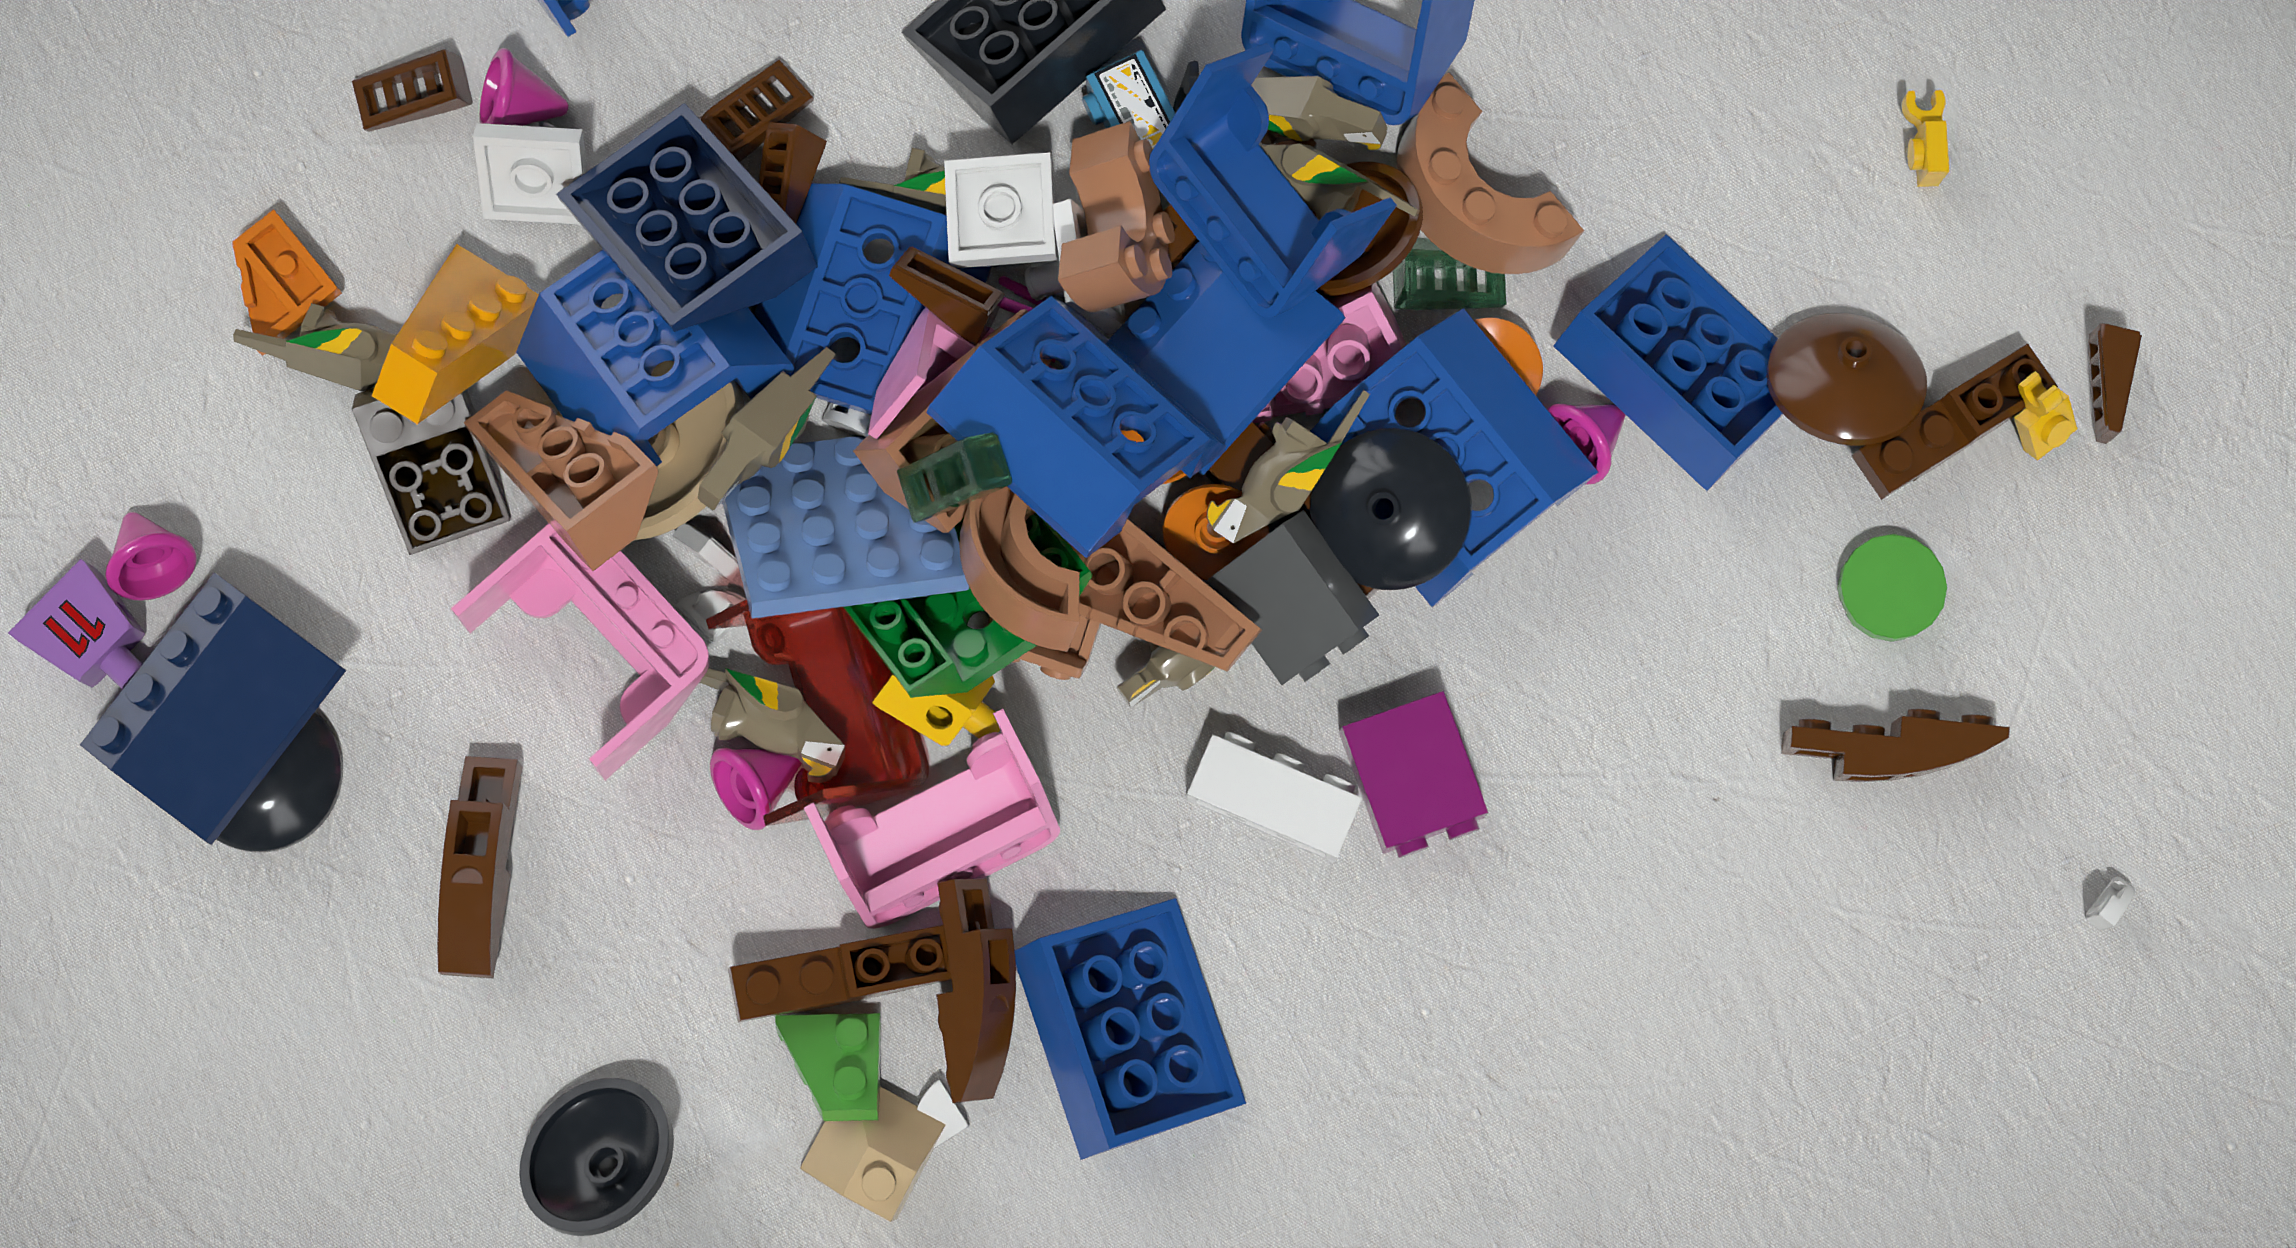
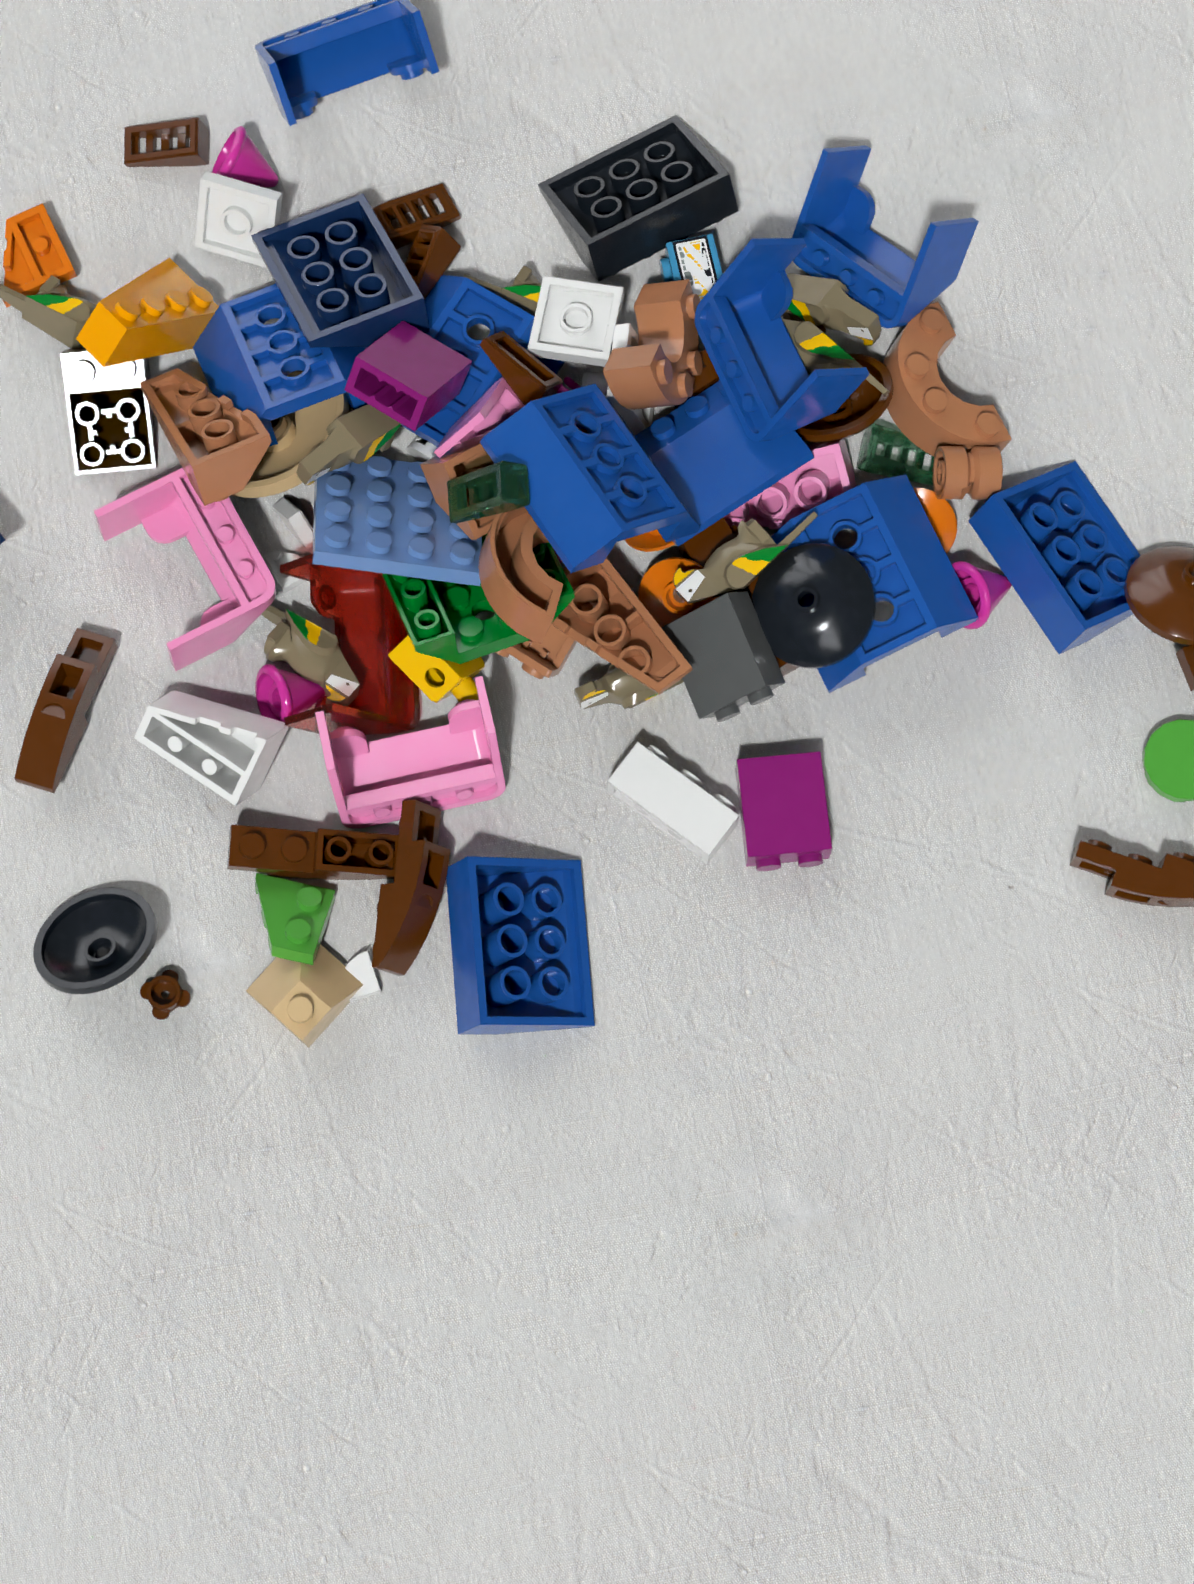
camera: 15 degrees right, 5 degrees down
(677, 865) = (212, 742): none -> white wedge
(684, 1198) = (153, 992): none -> reddish brown plate
(808, 339) = (408, 375): none -> magenta brick
(1547, 285) = (962, 472): none -> nougat wheel

